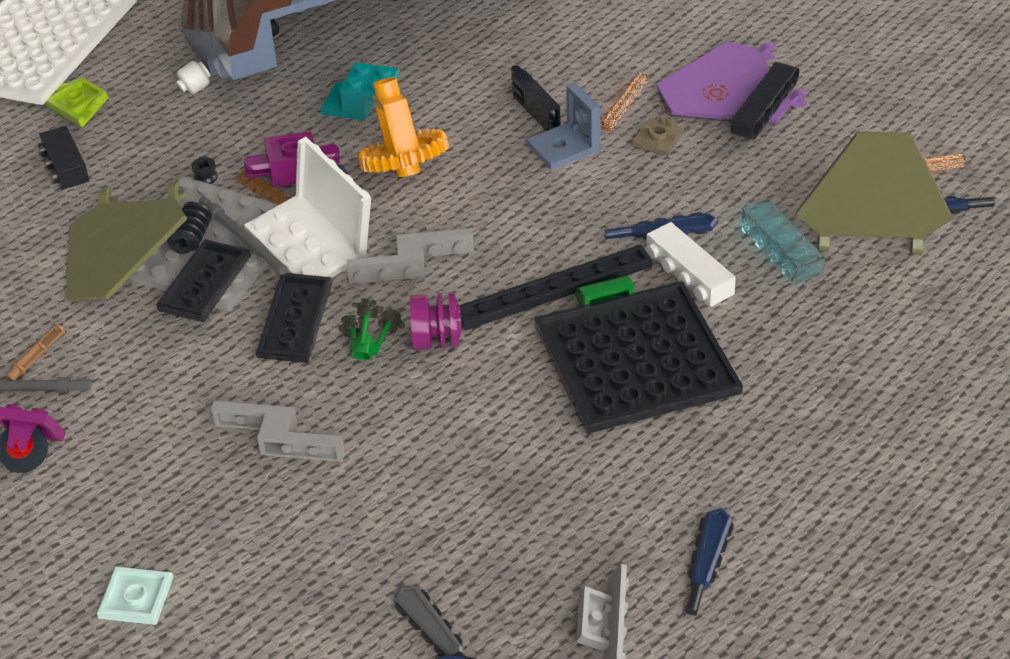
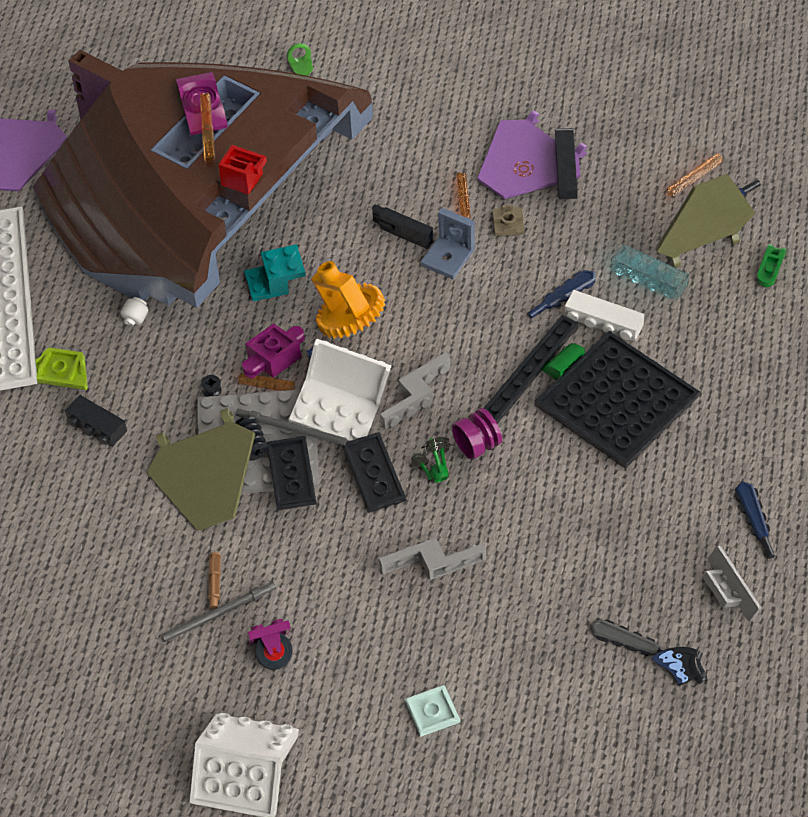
camera: 30 degrees left, 10 degrees up
(942, 289) = (770, 265): none -> green plate

